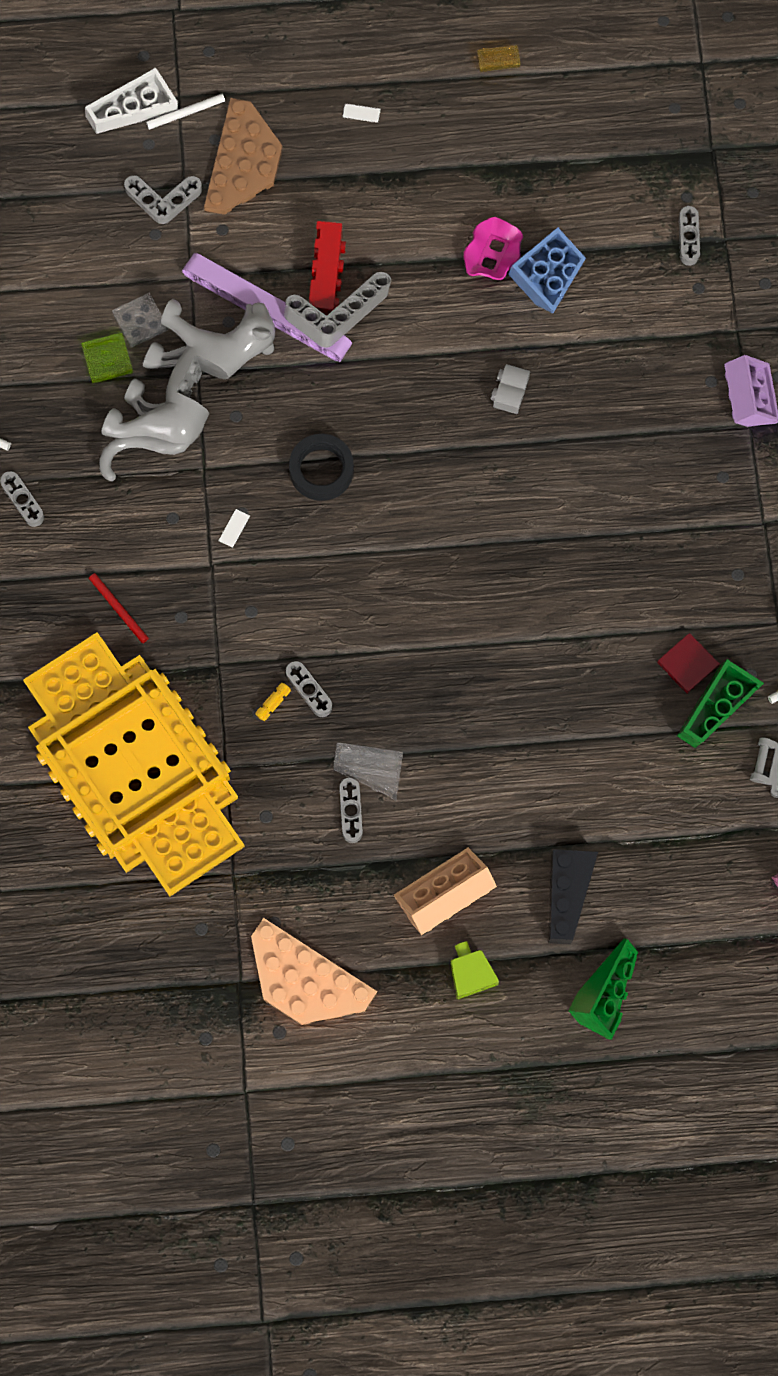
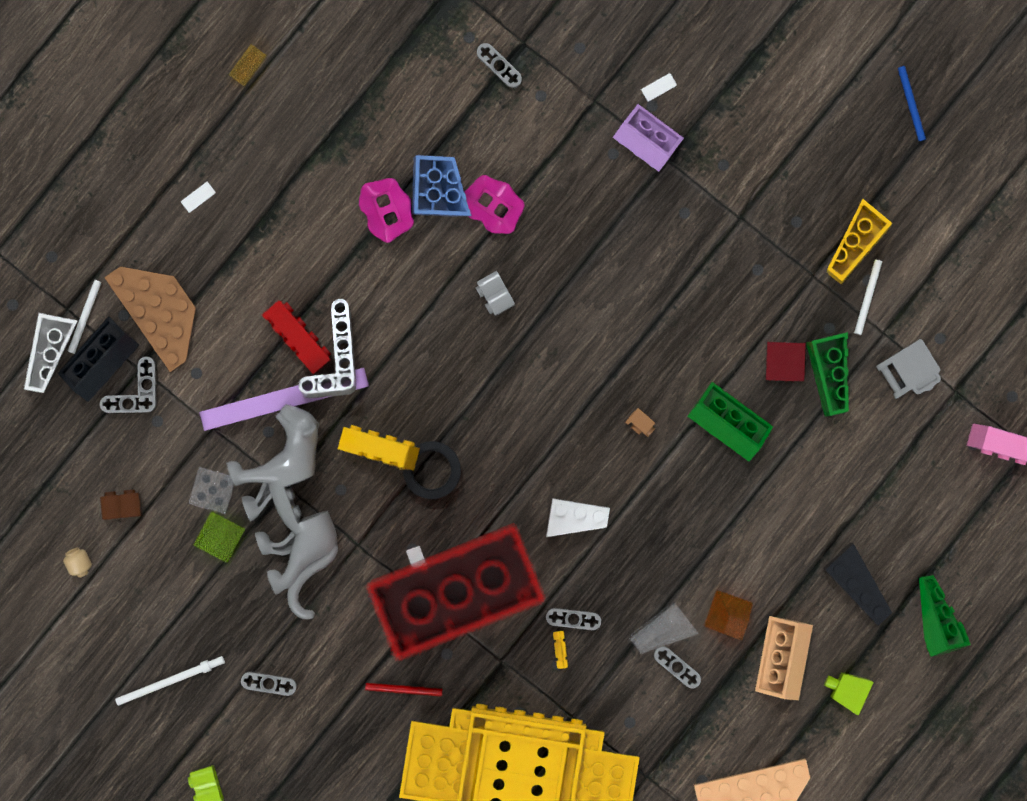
camera: 40 degrees left, 15 degrees up
(60, 261) = (120, 506): none -> reddish brown brick
(161, 148) = (98, 359): none -> black slope
(241, 552) = (455, 591): none -> red brick
(300, 407) = (379, 448): none -> yellow wedge
(394, 610) = (575, 517): none -> white wedge
(436, 812) = (729, 615): none -> clear orange slope
(522, 592) = (641, 422): none -> medium nougat brick
(593, 323) = (501, 194): none -> dark pink piece
(595, 662) = (730, 421): none -> green slope

